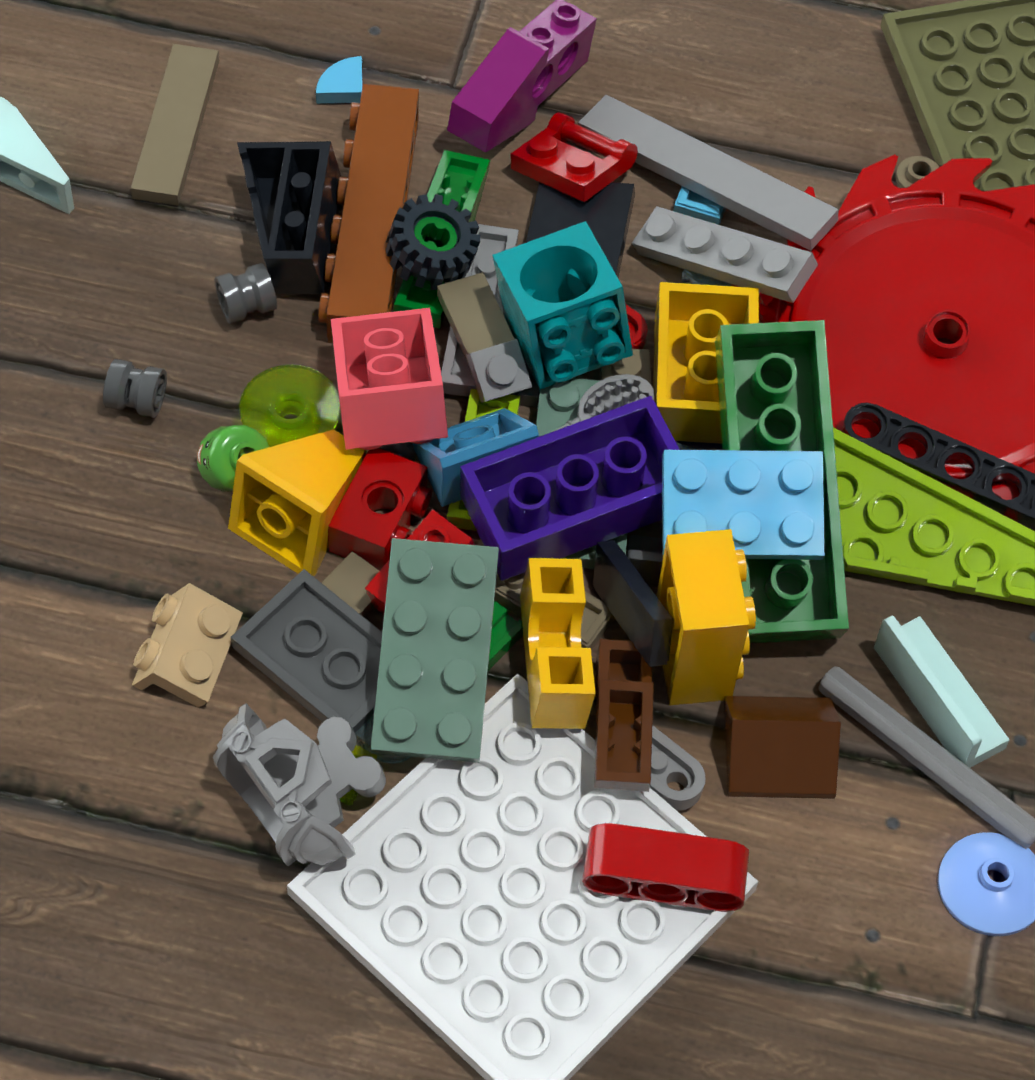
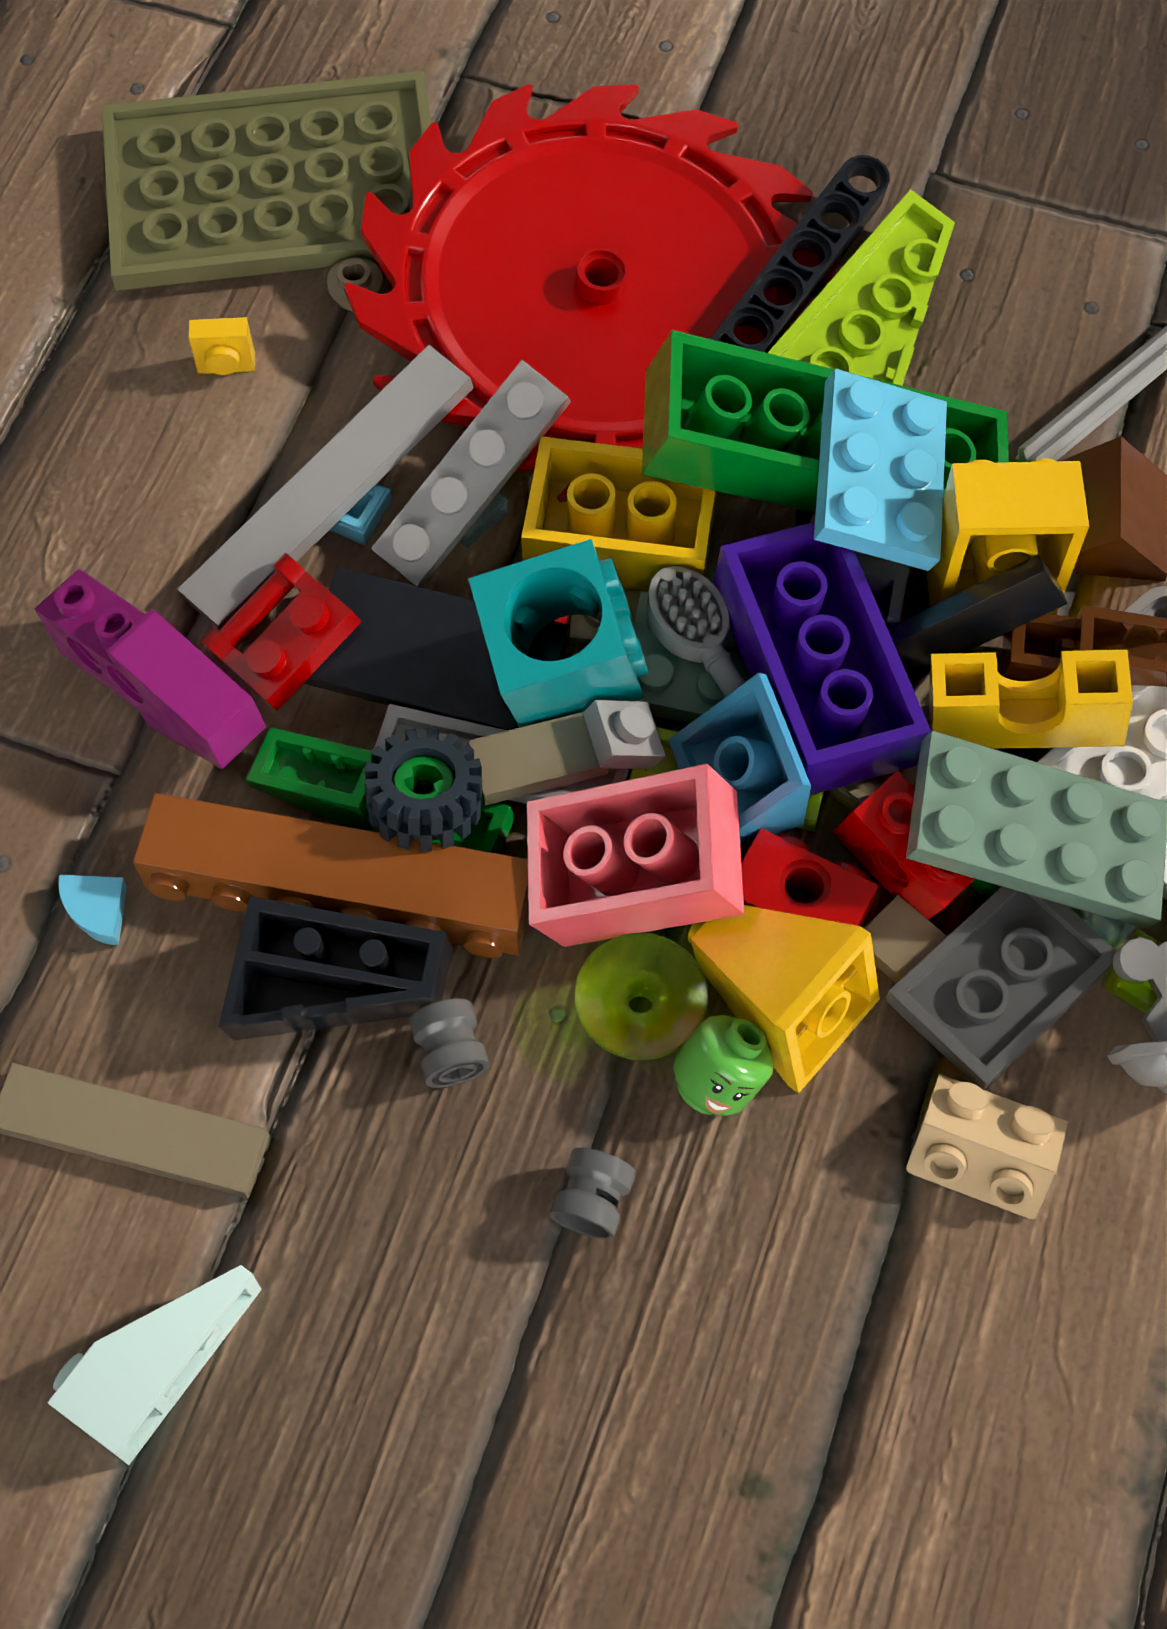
camera: 80 degrees left, 5 degrees up
(831, 93) = (222, 345): none -> yellow plate
(939, 691) = (1048, 361): light aqua panel -> none

